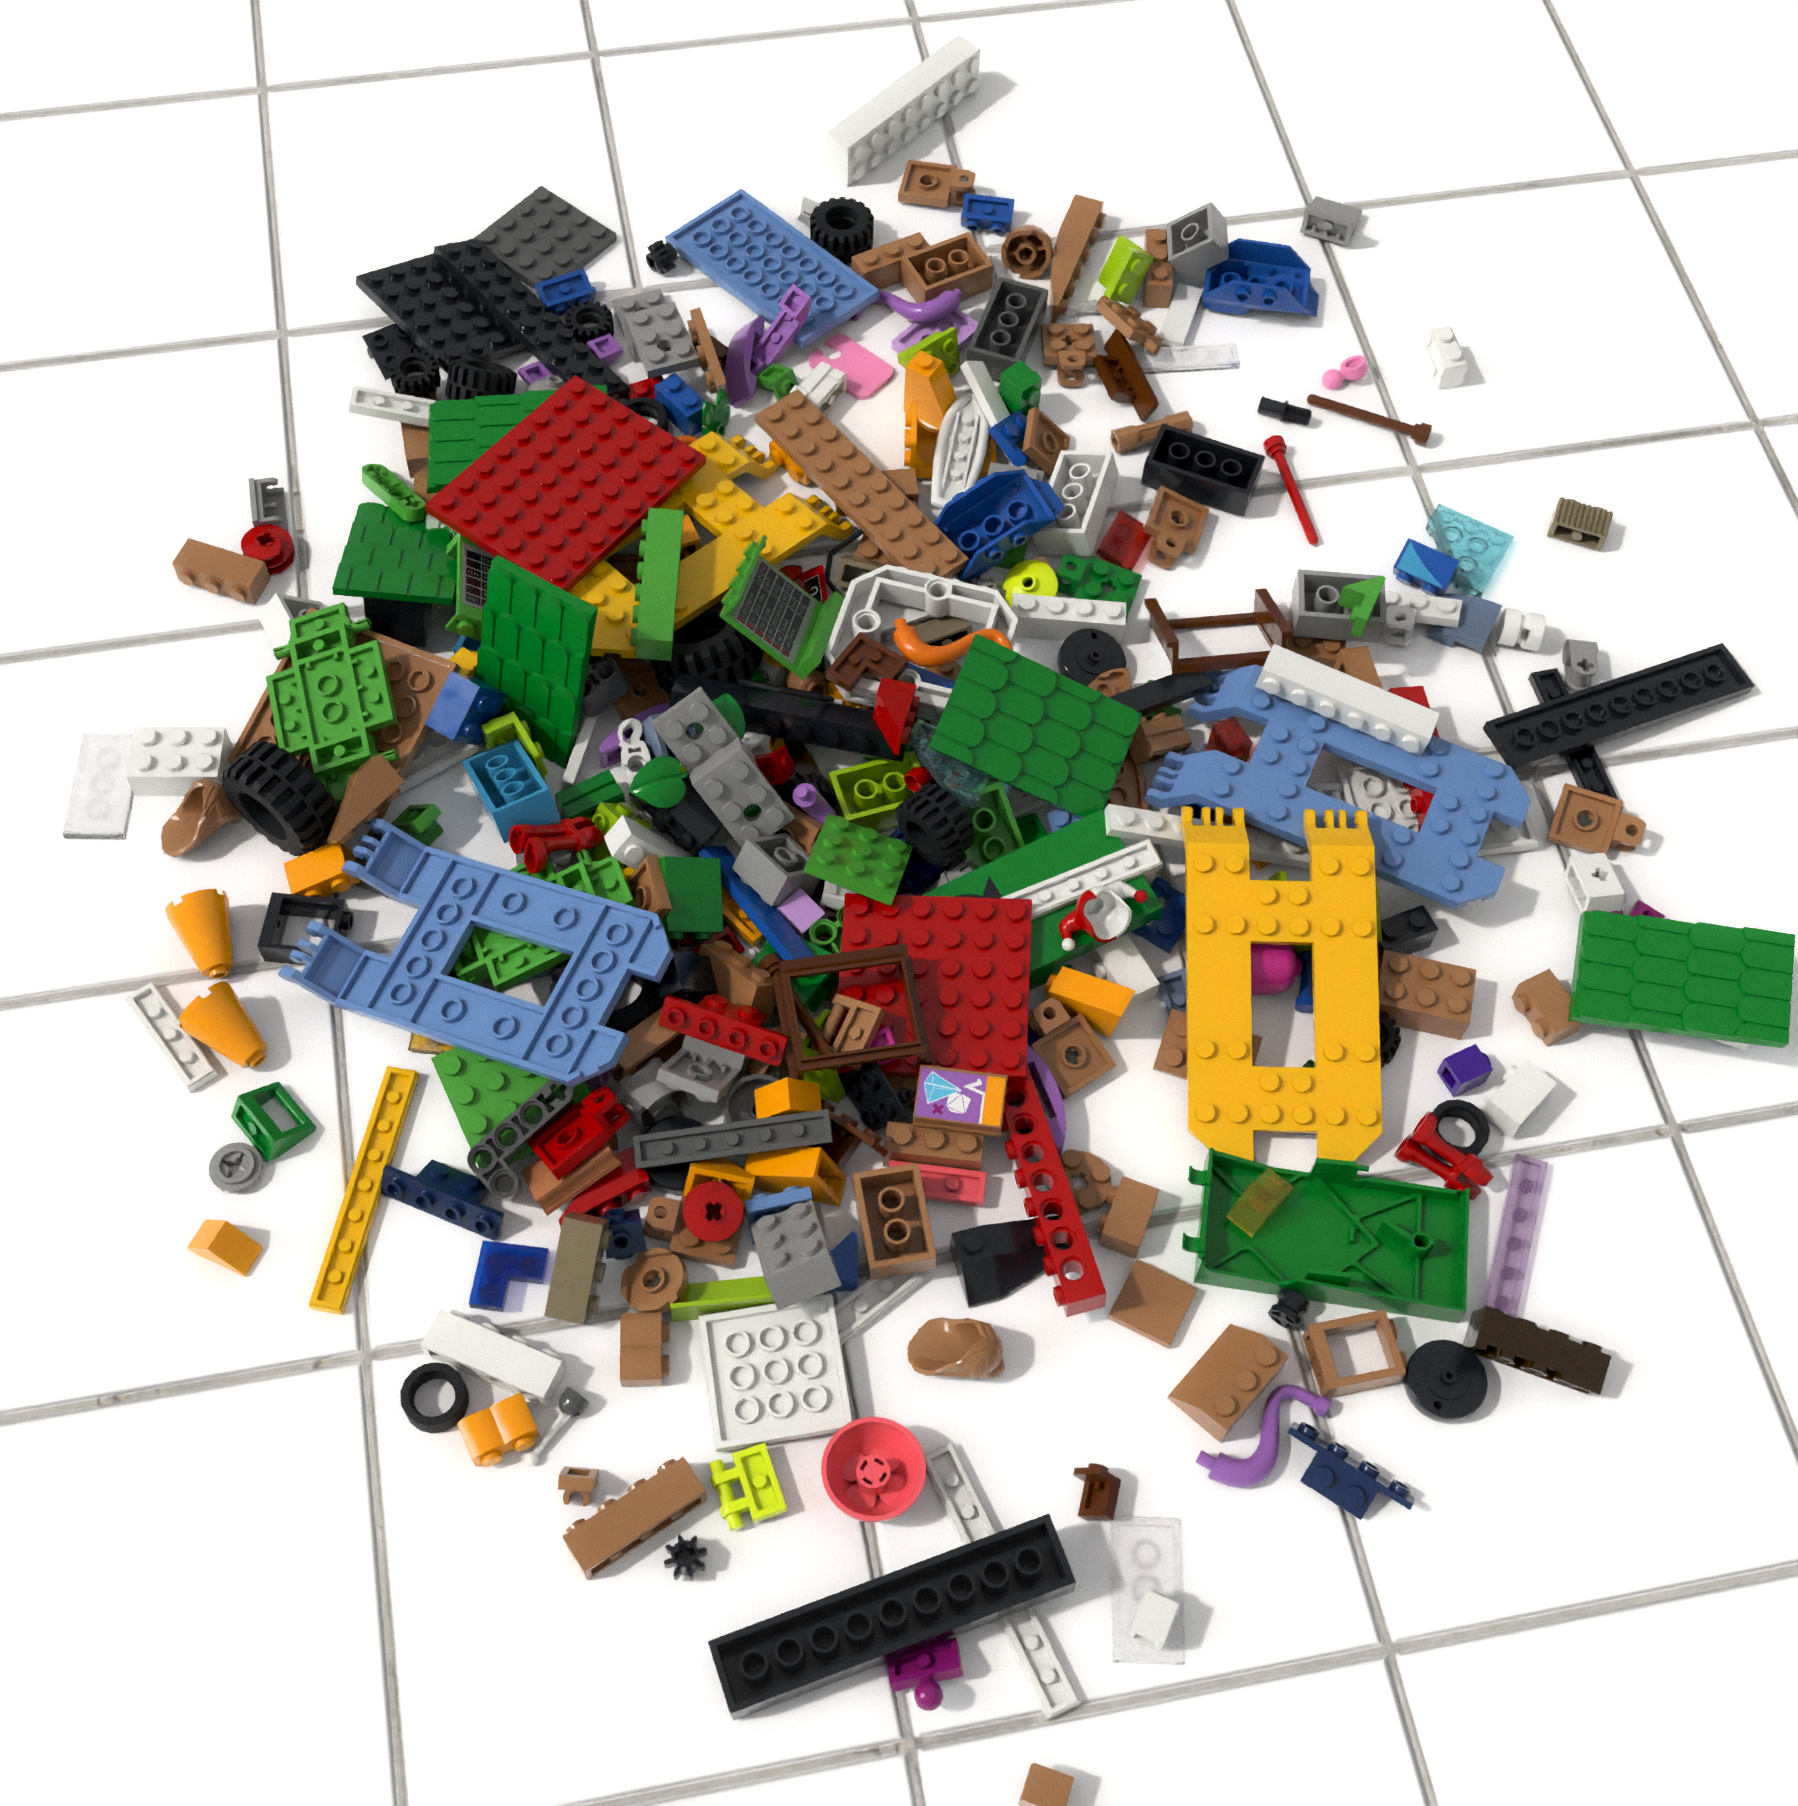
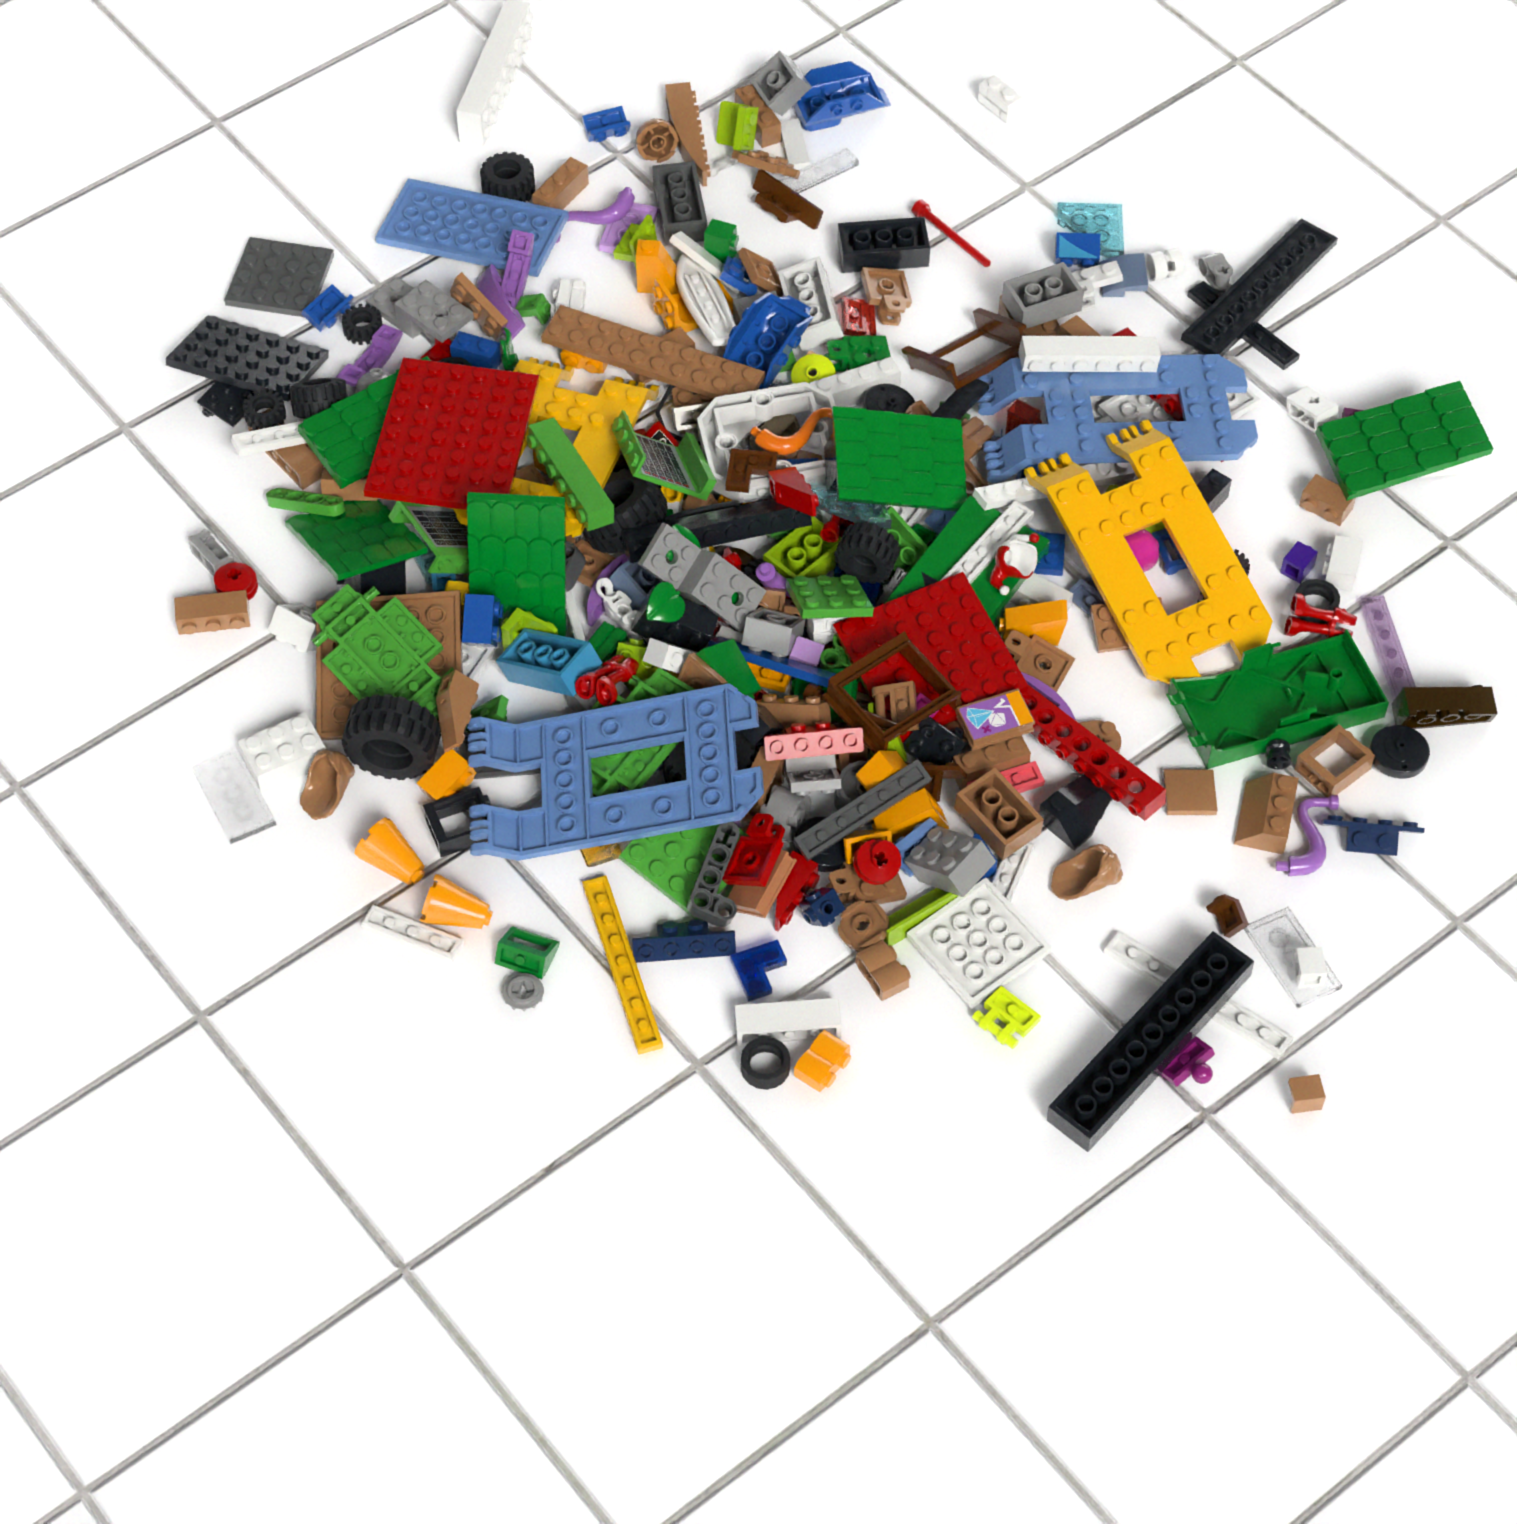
camera: 25 degrees left, 5 degrees down
(225, 1246) = (551, 1041): light orange slope -> none
(526, 315) = (309, 335): black plate -> none
(571, 1405) = (858, 1025): hinge -> none
(578, 1268) = (811, 937): dark tan brick -> none
(578, 1480) = (895, 1065): medium nougat tile -> none
(634, 1517) = (947, 1068): medium nougat brick -> none
(661, 257) = (383, 252): black gear -> none
(694, 1554) = (996, 1075): black gear -> none
(805, 209) = (470, 175): white tile -> none
(864, 370) = (594, 273): bright pink piece -> none
(867, 1451) = (1084, 963): coral piece -> none
(944, 185) = (559, 116): medium nougat plate -> none
(946, 266) = (605, 177): medium nougat brick -> none
(1068, 358) = (731, 198): medium nougat plate -> none
(1128, 1217) = (1143, 745): medium nougat brick -> none
(1133, 436) = (817, 242): medium nougat axle -> none
(1259, 1201) = (1221, 699): clear yellow slope -> none
(1284, 411) = (912, 181): black axle -> none
(1330, 220) = (859, 32): light grey bracket -> none
(1352, 369) = (940, 132): bright pink plate -> none
(1362, 599) = (1062, 282): bright green slope -> none
(1419, 432) = (1013, 159): reddish brown piece -> none
(1425, 994) = (1251, 524): medium nougat brick -> none
(1580, 524) = (1161, 177): dark tan brick -> none
(1608, 825) = (1299, 370): medium nougat plate -> none

